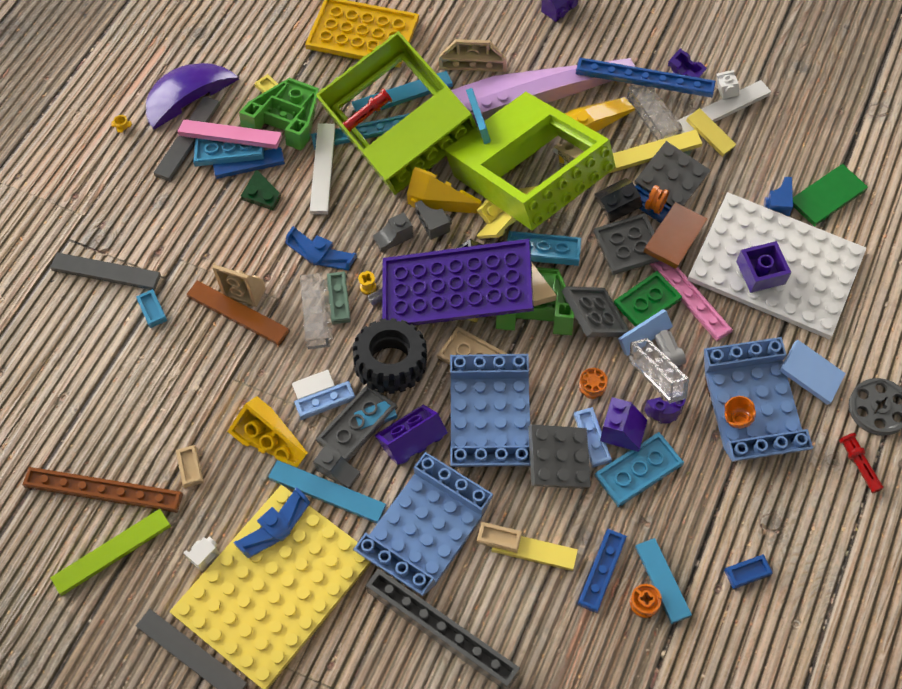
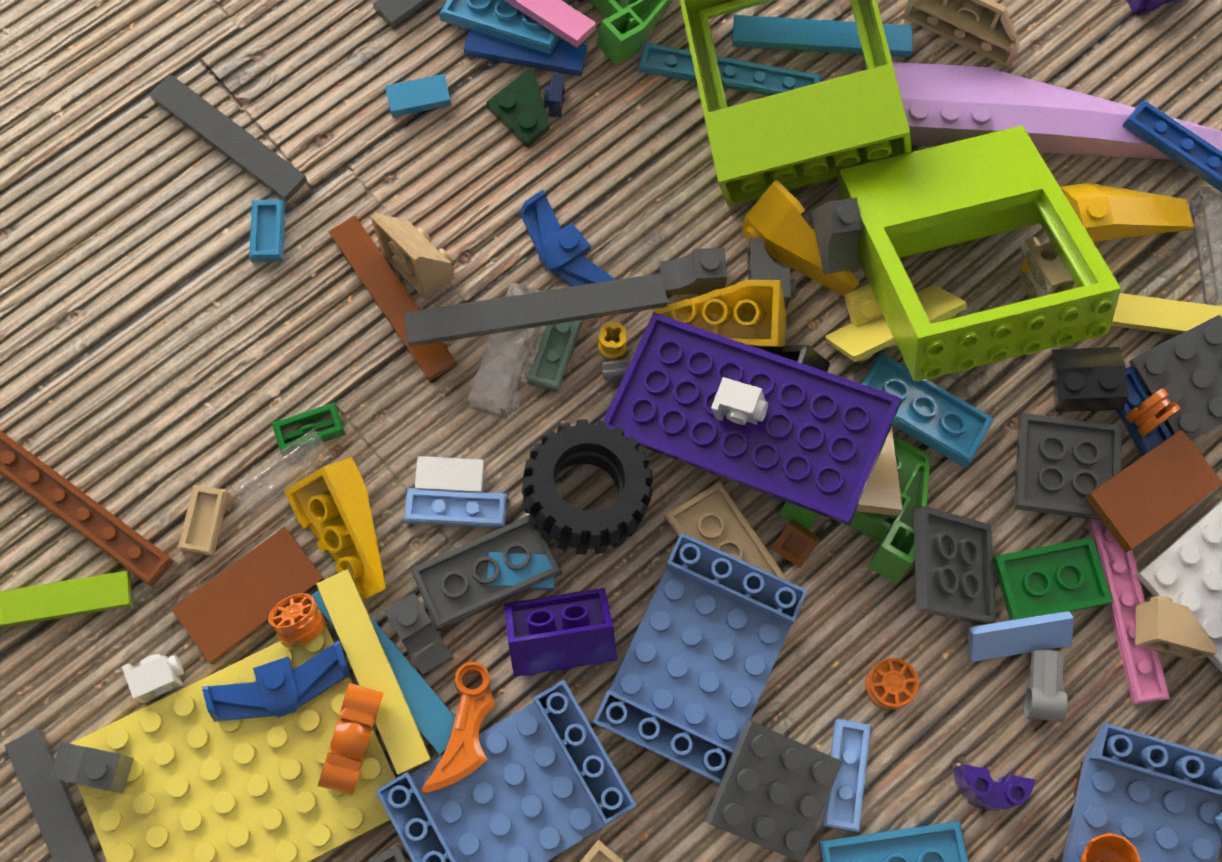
camera: 20 degrees right, 10 degrees up
(192, 609) = (91, 767): none -> dark grey arch
(201, 208) = (418, 95): none -> dark azure tile
(221, 421) = (281, 471): none -> clear plate
(227, 398) = (307, 416): none -> green tile
(233, 492) = (244, 594): none -> dark orange tile
(267, 489) = (298, 621): none -> orange wheel
(276, 177) = (555, 95): none -> dark blue plate
(319, 282) = (535, 309): none -> dark grey tile
(322, 169) = (635, 111): white tile -> none
(322, 496) = (374, 671): none -> light yellow tile
(327, 530) = (350, 739): none -> orange piece
(374, 104) = (758, 44): red pin -> none
(389, 512) = (463, 750): none -> orange piece
(429, 236) = (744, 312): none -> yellow wedge
(449, 277) = (739, 402): none -> white brick
(457, 177) = (837, 234): none -> dark grey arch
(478, 116) = (921, 137): dark azure tile -> none
(511, 338) = (796, 543): none -> dark orange plate
(623, 425) = (905, 785): dark purple slope -> none
(659, 370) = (1009, 724): clear brick -> none
(717, 296) = (1171, 629): none -> tan slope

